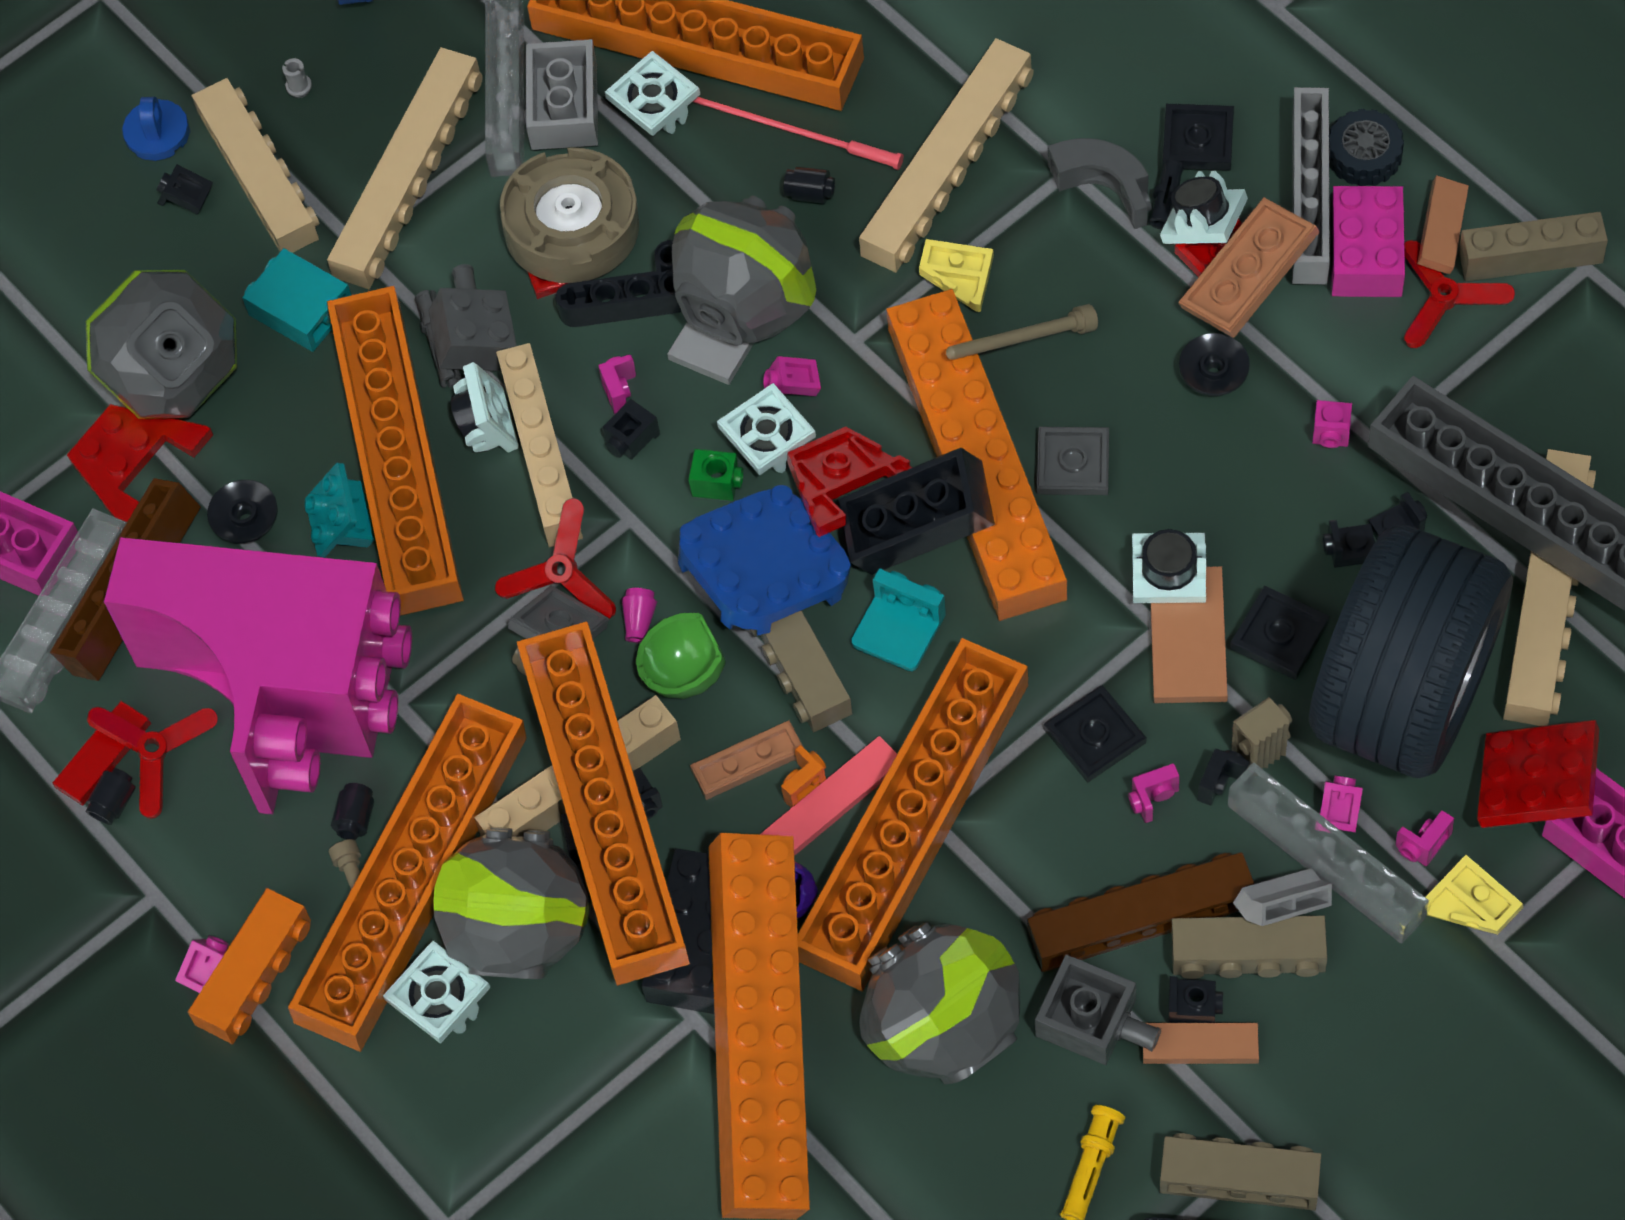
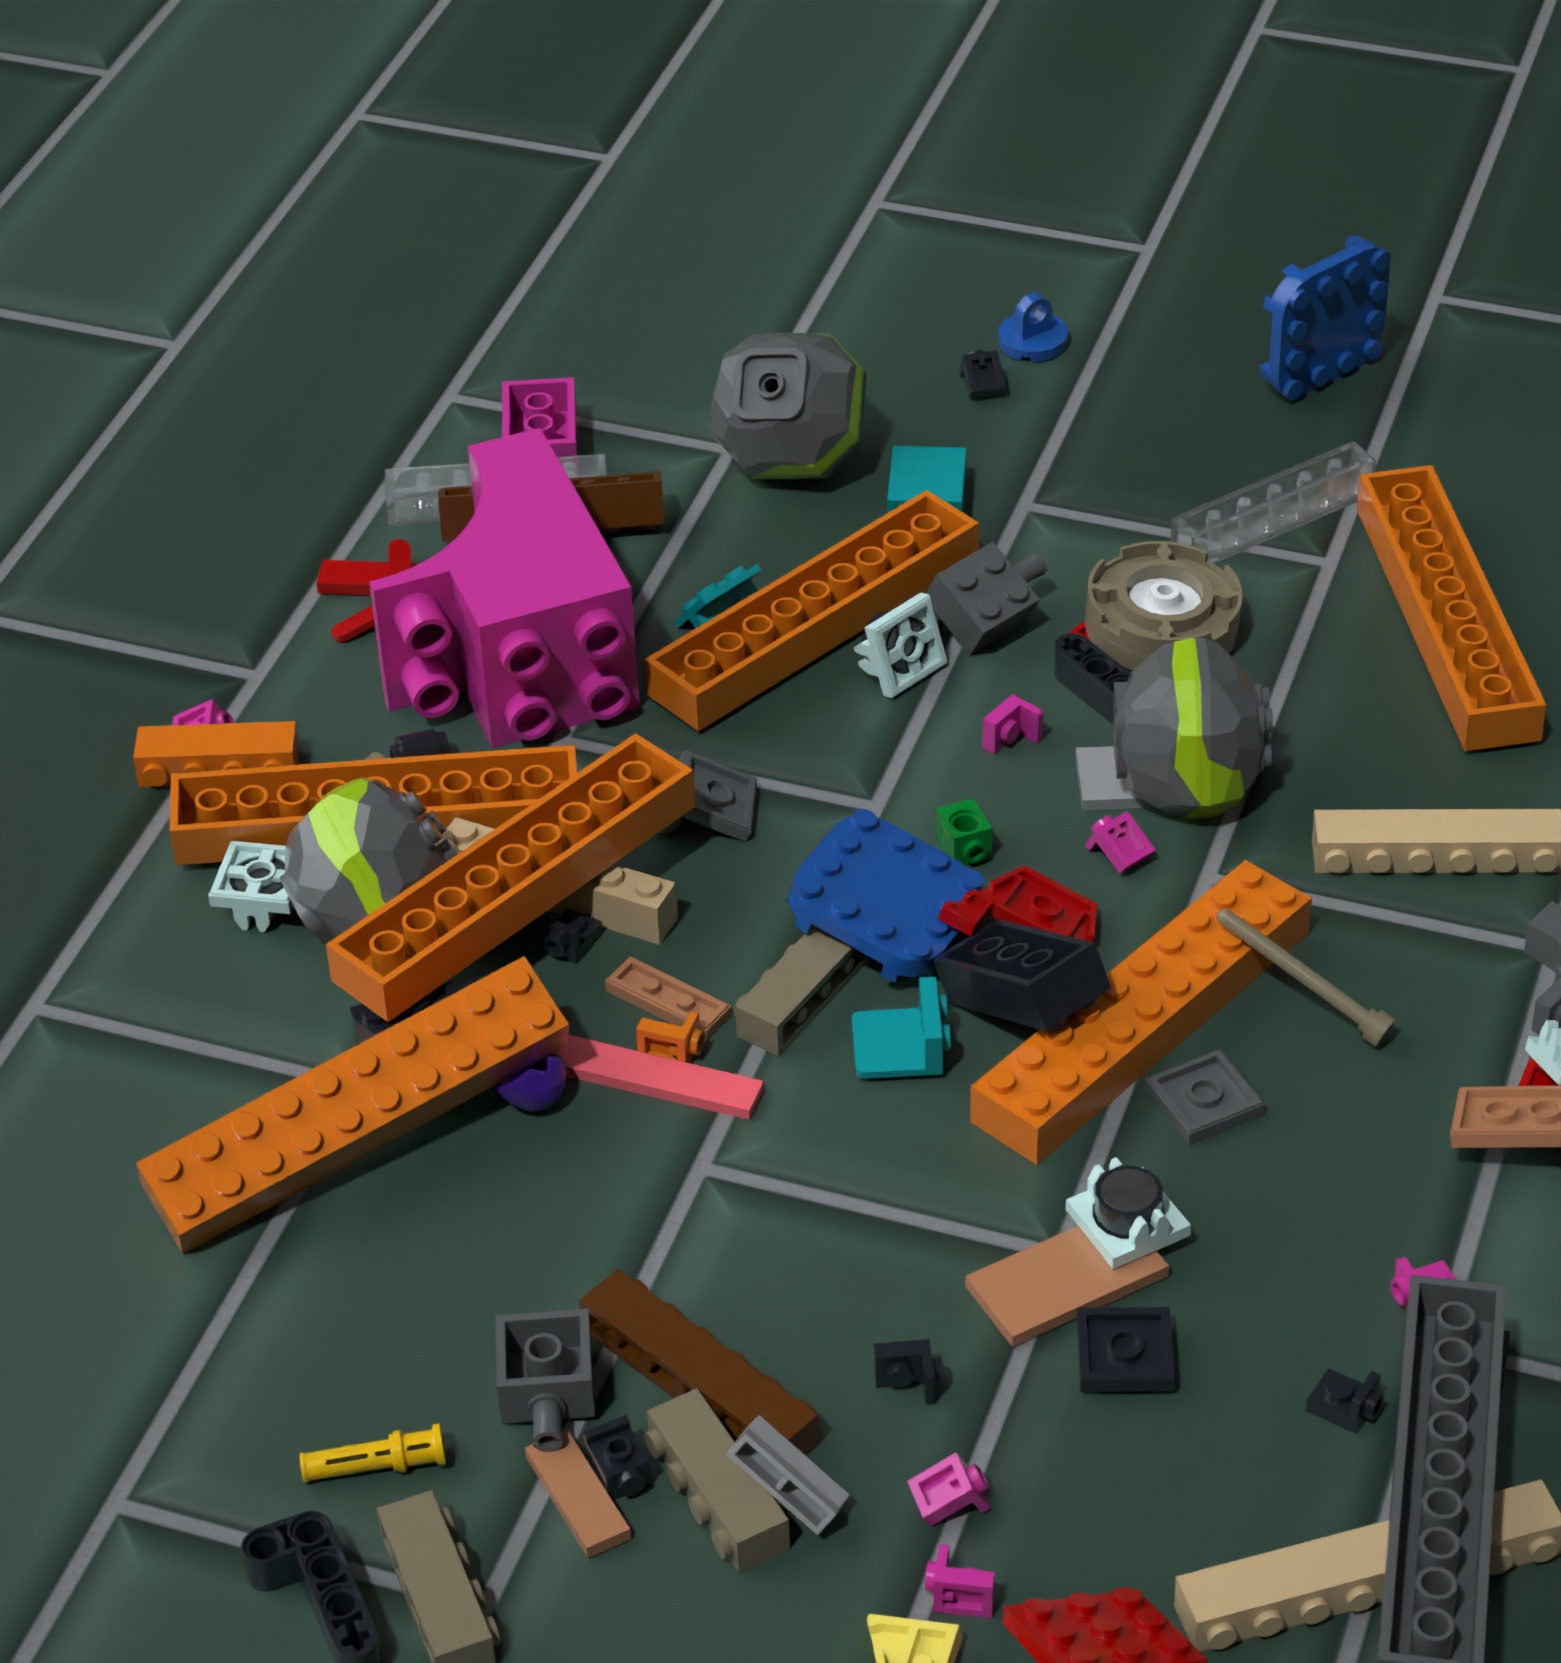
camera: 55 degrees right, 20 degrees down
(110, 796) = (332, 598): black brick -> none
(120, 448) = (693, 457): red wing -> none
(237, 500) = (678, 549): black dish -> none
(255, 166) = (1042, 404): tan brick -> none
(297, 82) = (1157, 393): light grey pin -> none
(405, 168) = (1115, 490): tan brick -> none
(536, 435) = (897, 701): tan brick -> none
(547, 573) = (778, 768): red piece -> none
(561, 94) = (1293, 548): light grey brick -> none
(634, 422) = (965, 754): black brick -> none
(638, 613) = (769, 848): dark pink cone -> none
(651, 95) = (1348, 608): light aqua piece -> none
(680, 657) = (734, 890): bright green cylinder -> none
(766, 429) = (1039, 839): light aqua piece -> none
(809, 185) = (1352, 759): black brick -> none
(852, 147) = (1428, 775): coral piece -> none
(911, 813) = (684, 1132): orange brick -> none
(941, 1002) = (462, 1225): dark grey rock -> none
(958, 268) = (1353, 910): light yellow wing -> none
(1094, 733) = (890, 1250): black tile -> none
(1155, 786) = (851, 1314): dark pink bracket -> none
(1216, 352) = (1411, 1153): black dish -> none
(1262, 733) = (972, 1373): dark tan brick -> none
(1329, 852) = (871, 1498): clear brick -> none
(1348, 544) = (1283, 1365): black bracket -> none
(1409, 650) = (1133, 1409): black wheel -> none

